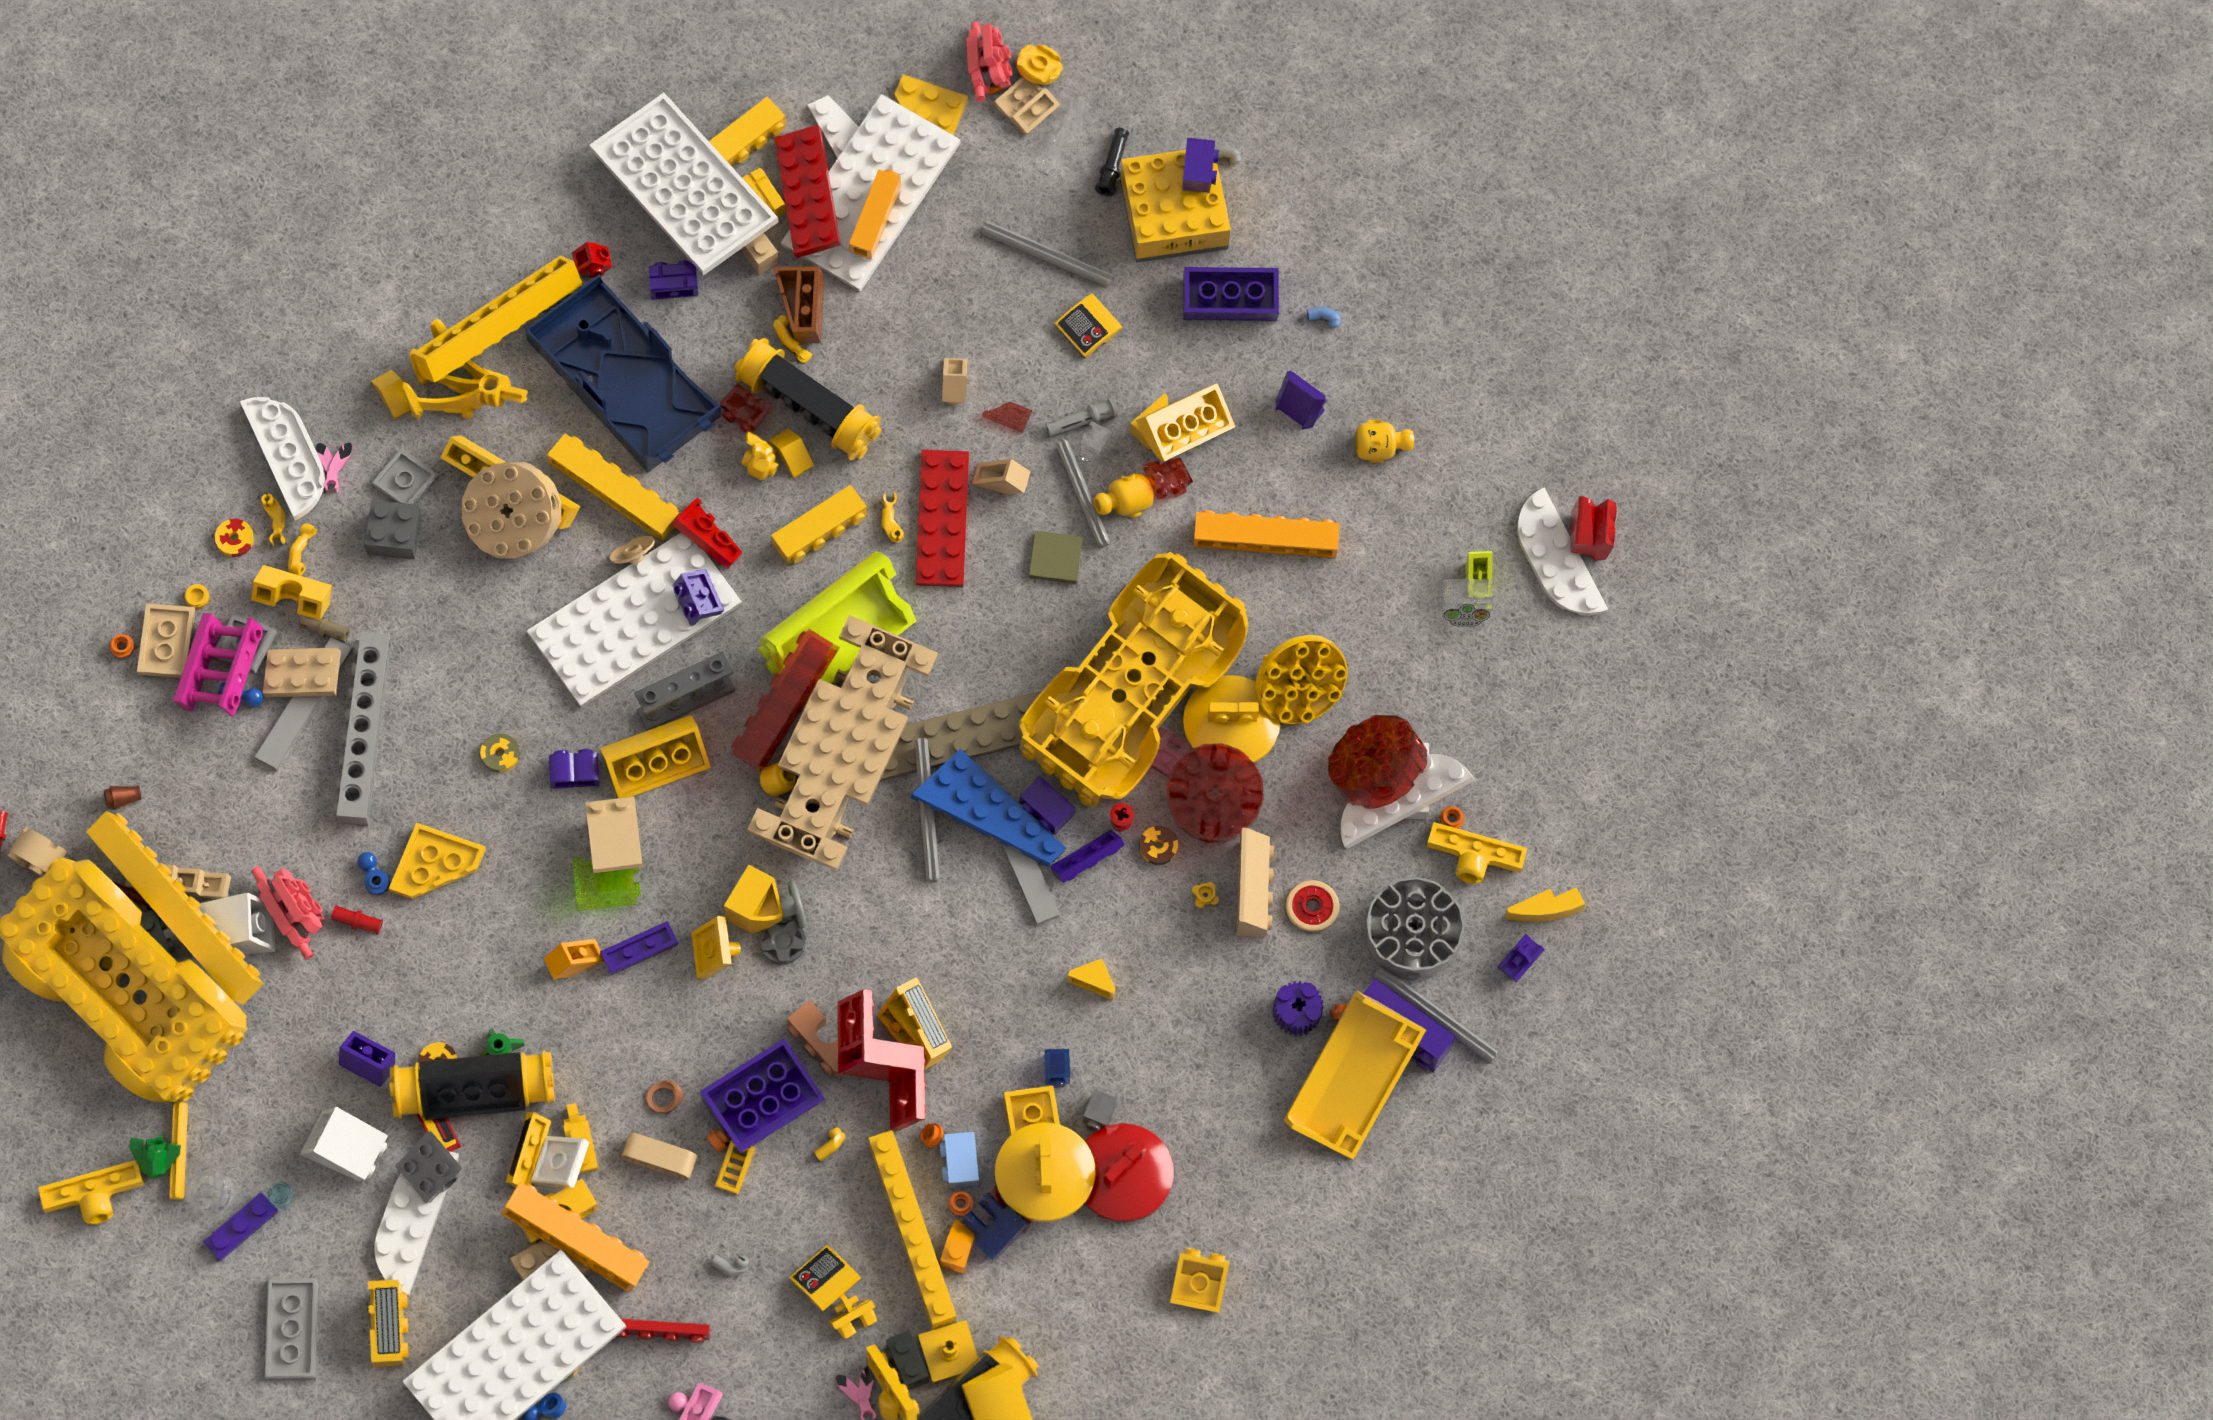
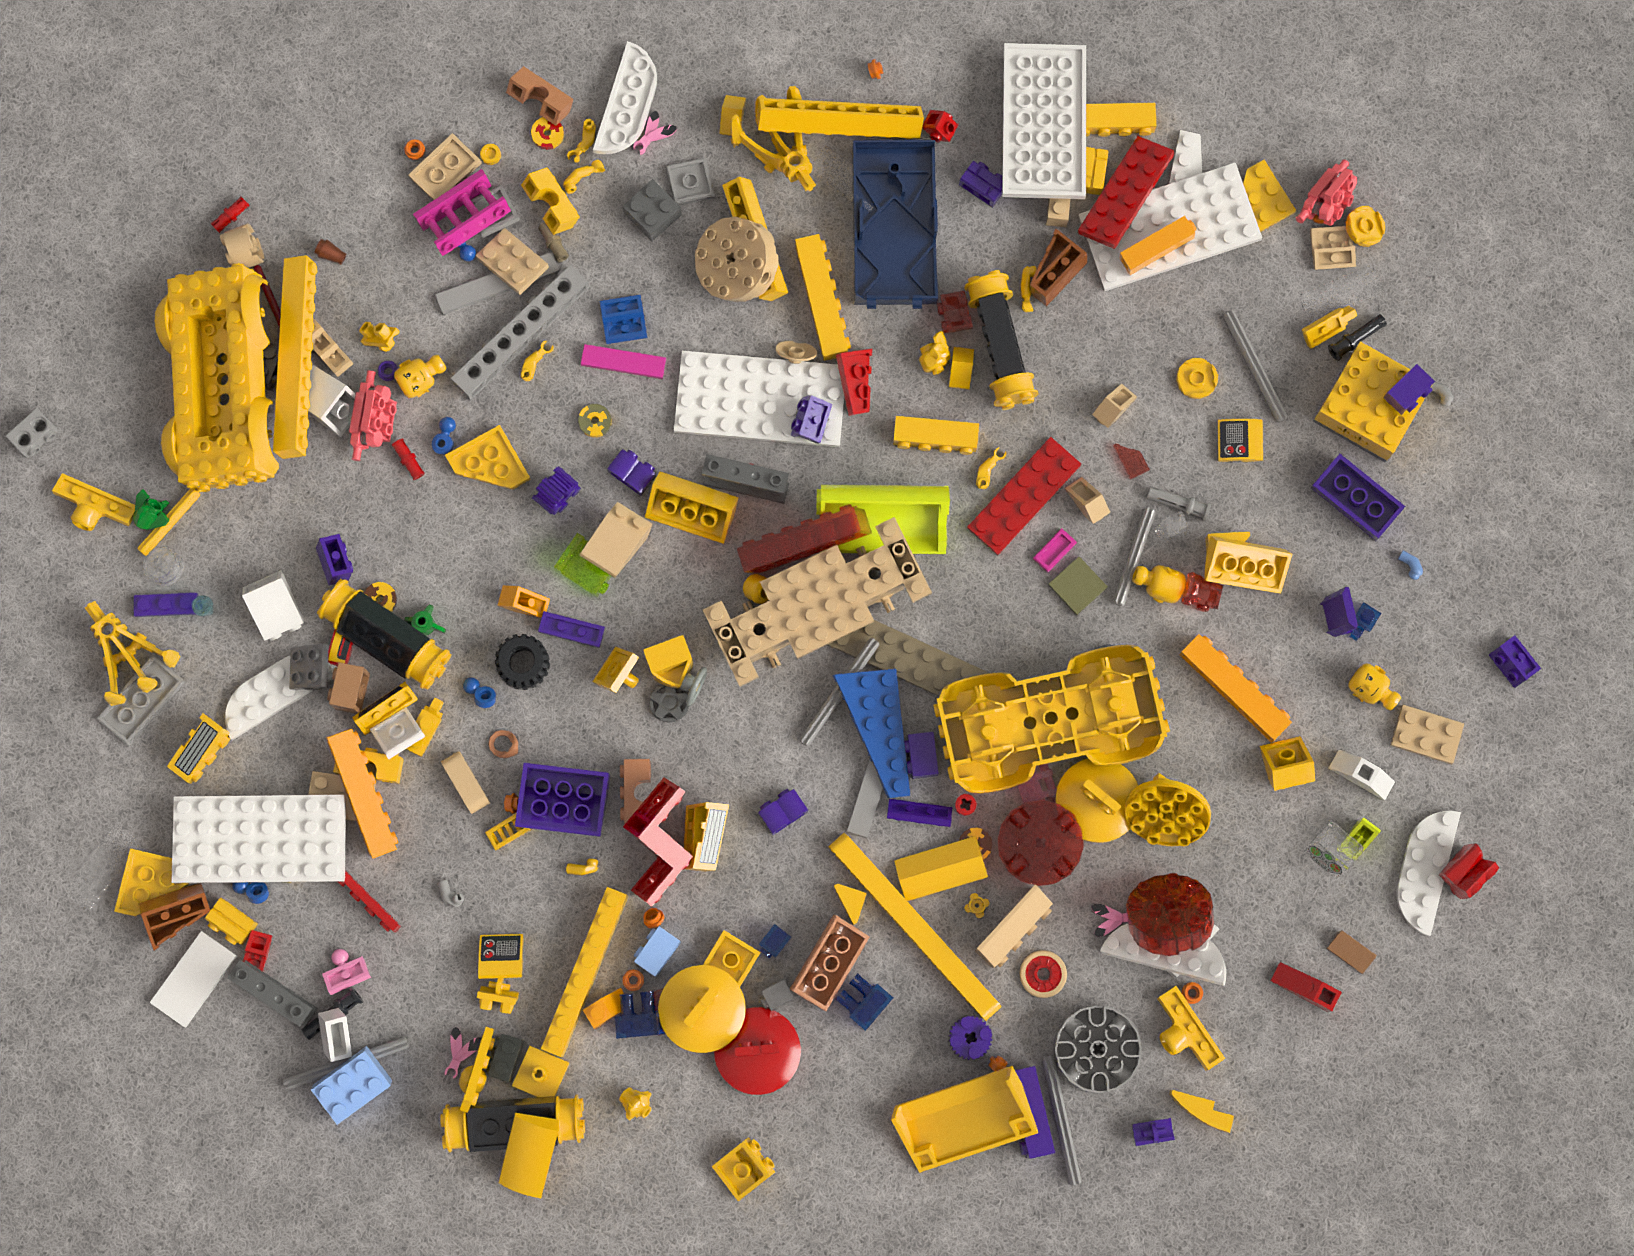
camera: 45 degrees right, 10 degrees up
(182, 507) = (528, 85): none -> nougat arch
(236, 831) = (378, 335): none -> yellow hips
(242, 1294) = (111, 660): none -> yellow piece
(265, 851) = (383, 366): none -> dark purple plate
(302, 838) = (416, 376): none -> yellow piece
(395, 747) = (530, 362): none -> yellow arm
(448, 645) = (623, 319): none -> blue slope
(481, 681) = (623, 361): none -> dark pink tile
(483, 1159) = (348, 688): none -> medium nougat brick
(490, 256) = (875, 69): none -> orange plate
(520, 837) = (555, 491): none -> dark purple brick
(610, 1069) = (483, 696): none -> blue plate
(624, 1028) = (529, 678): none -> black tyre
(966, 952) = (782, 811): none -> dark purple brick
(1003, 309) = (1195, 384): none -> yellow tile
(1009, 543) = (1054, 550): none -> dark pink tile
(1056, 1304) = (635, 1103): none -> yellow rock
(1080, 172) = (1328, 326): none -> yellow hinge
(1121, 1045) = (829, 963): none -> nougat brick
(1147, 888) = (941, 868): none -> yellow slope
(1166, 954) = (915, 926): none -> yellow beam
(1189, 1060) = (870, 1008): none -> clear blue brick
(1328, 387) = (1366, 619): none -> clear blue plate
(1332, 809) = (1115, 919): none -> bright pink piece
(1365, 561) = (1288, 763): none -> yellow slope
(1434, 519) = (1362, 773): none -> white slope
(1460, 446) = (1427, 734): none -> tan plate
(1480, 328) = (1514, 661): none -> dark purple bracket
(1544, 733) = (1306, 987): none -> red slope
(1554, 675) = (1351, 951): none -> medium nougat slope

